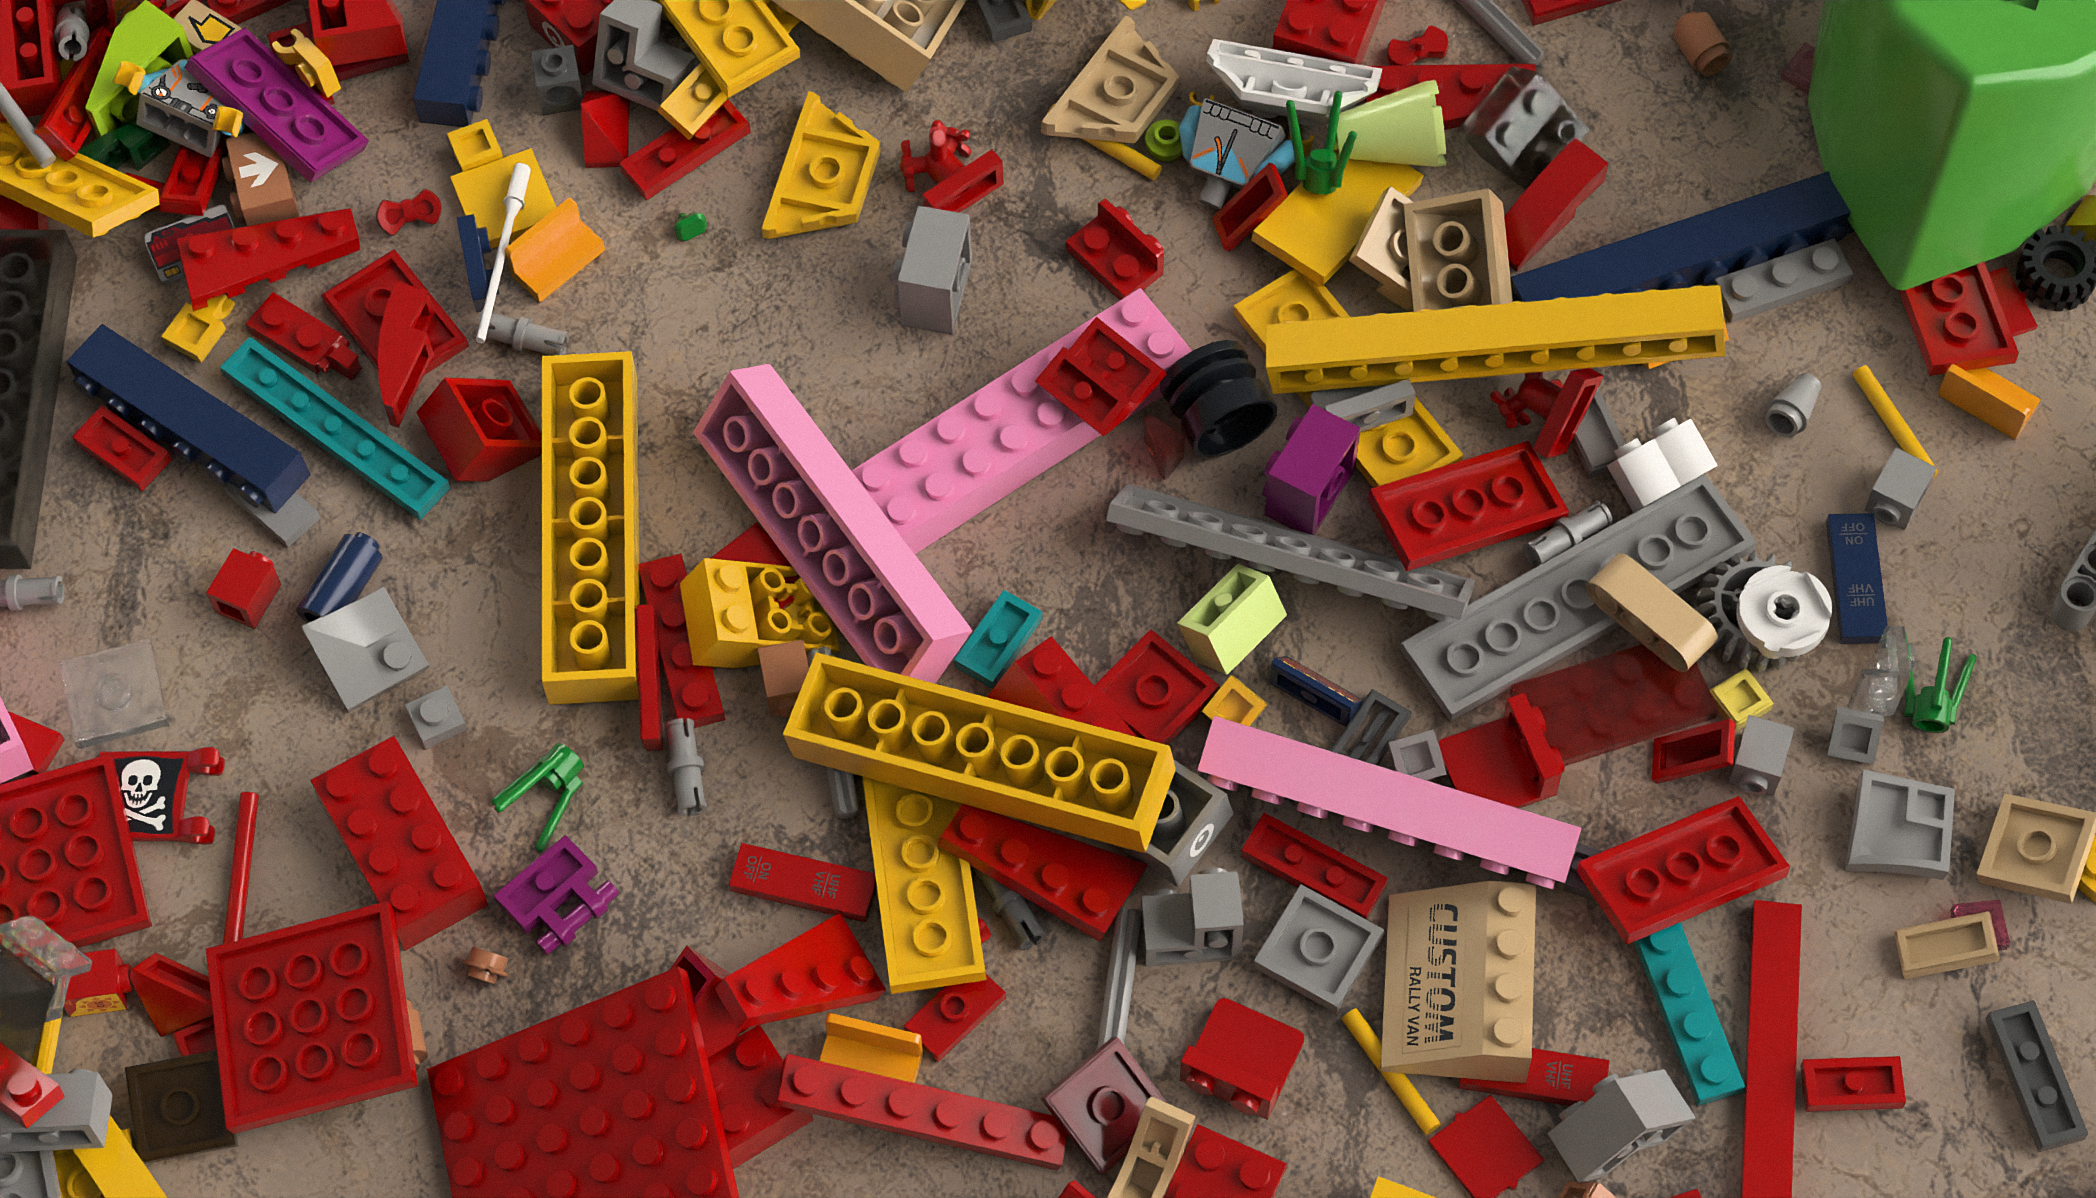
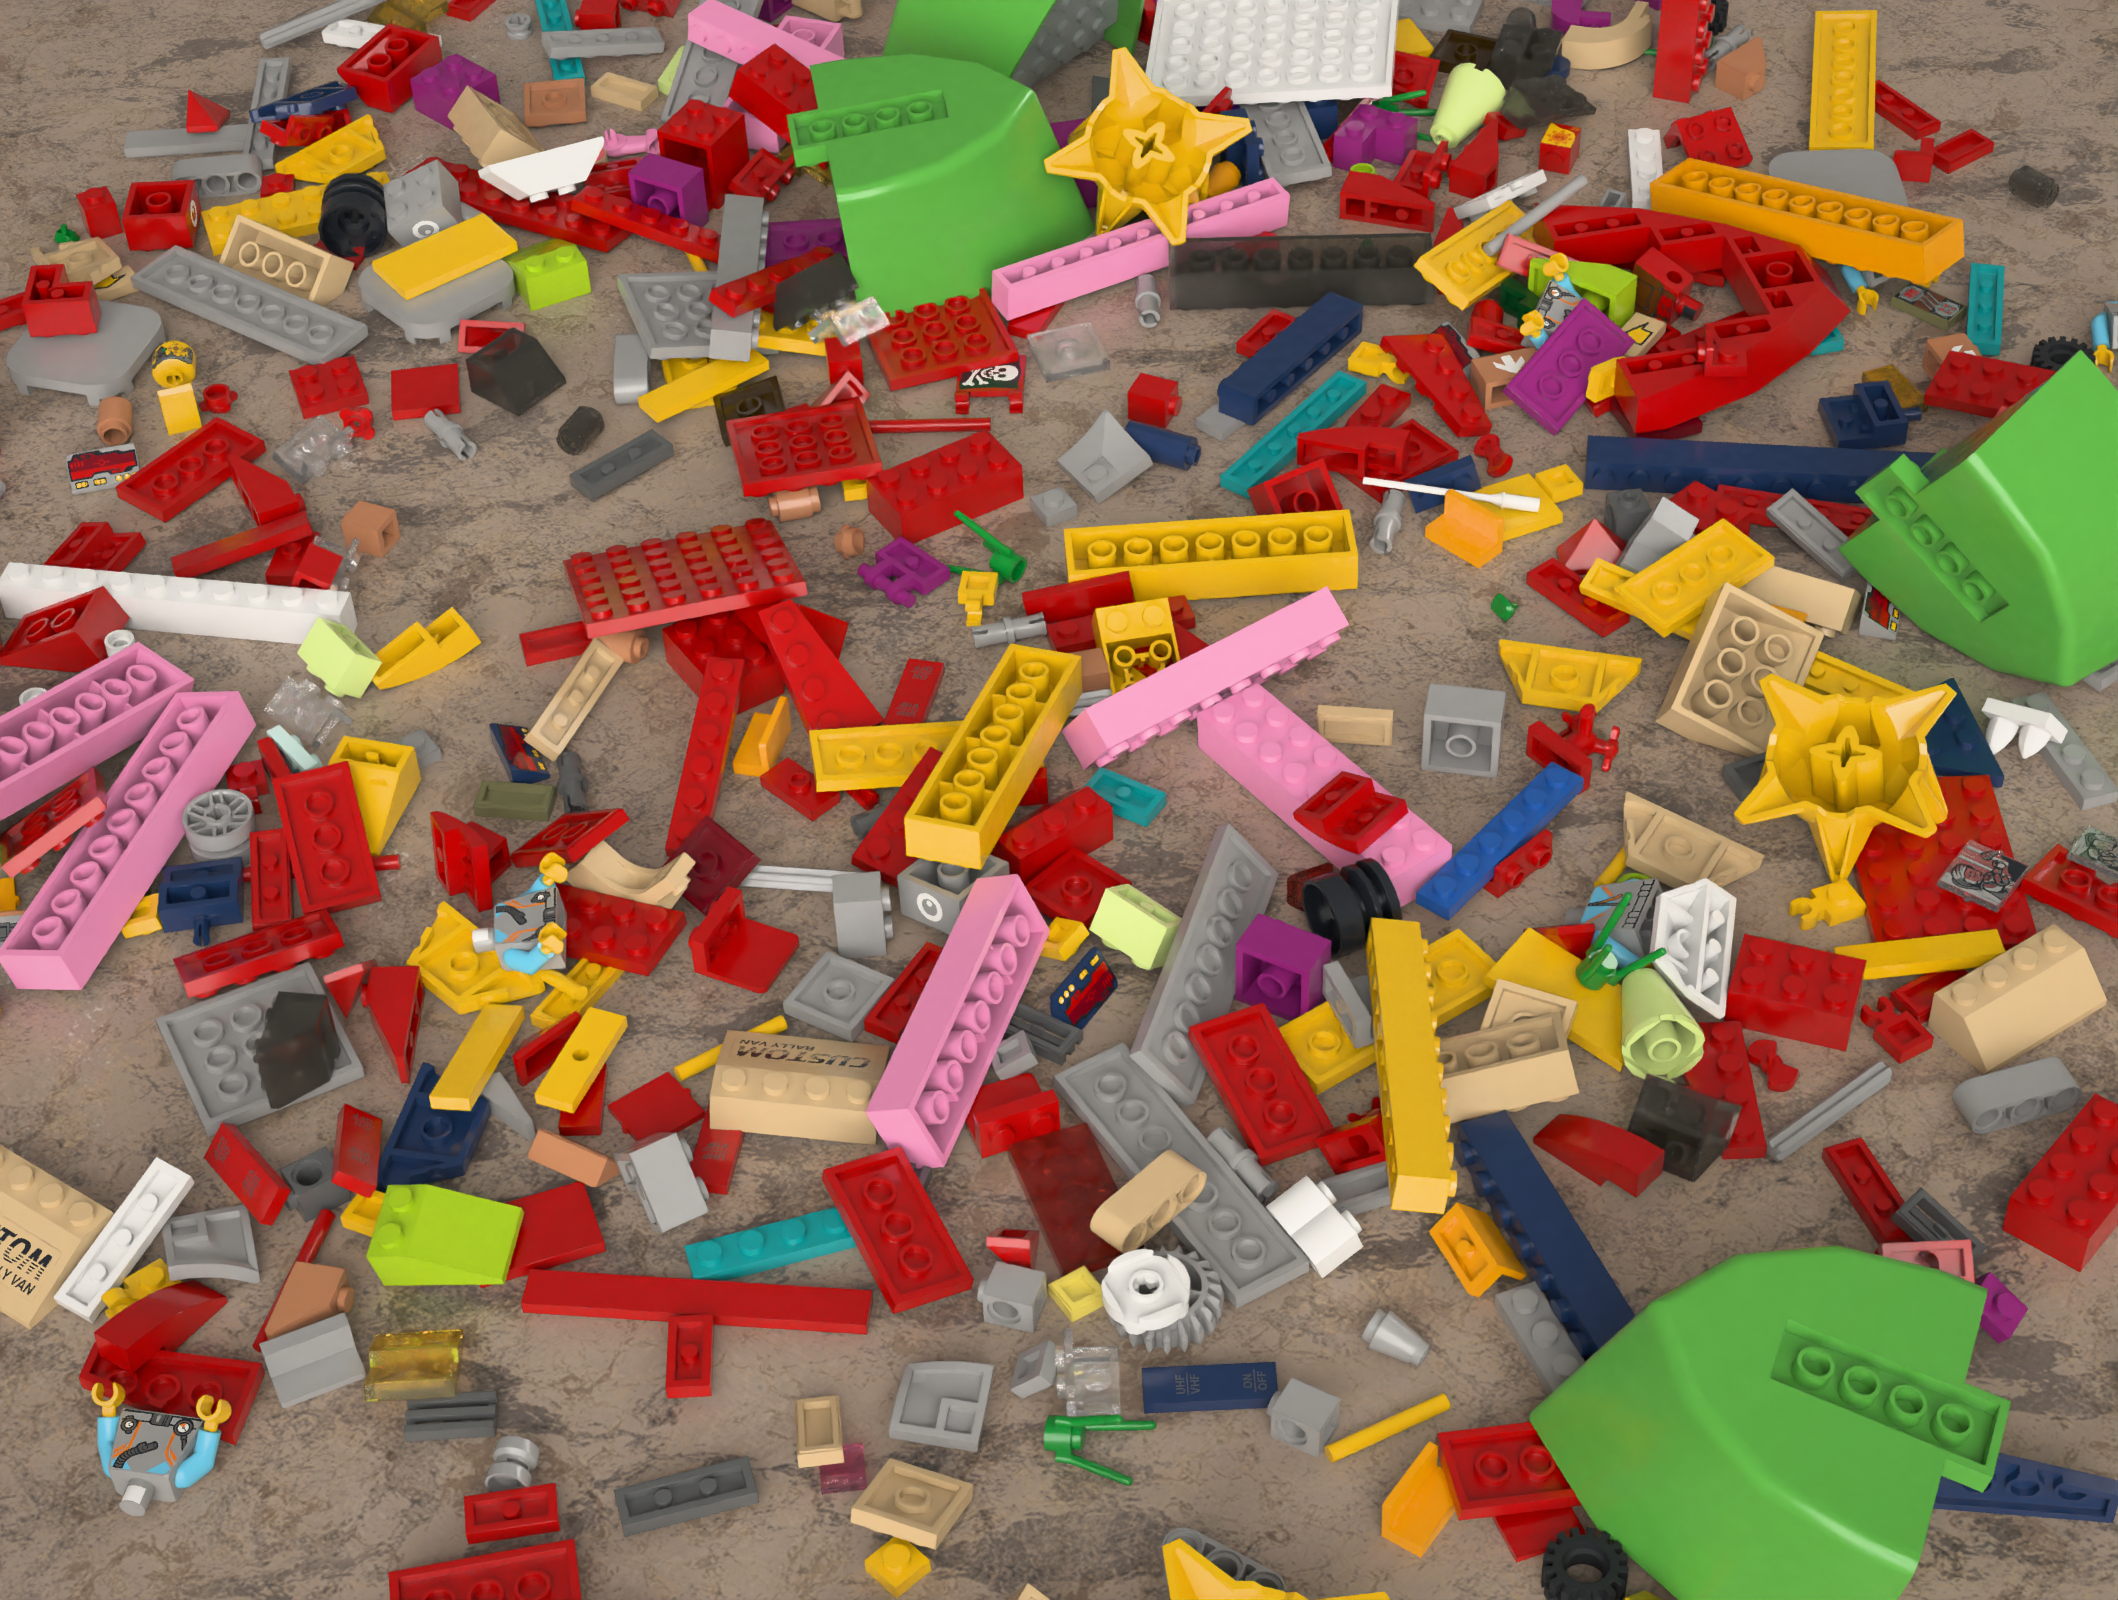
camera: 90 degrees right, 20 degrees down
(71, 33) = (1601, 254): light grey pin -> none
(605, 803) = (975, 591): none -> yellow plate
(896, 388) = (1355, 725): none -> tan tile
(1106, 249) = (1503, 835): none -> blue plate

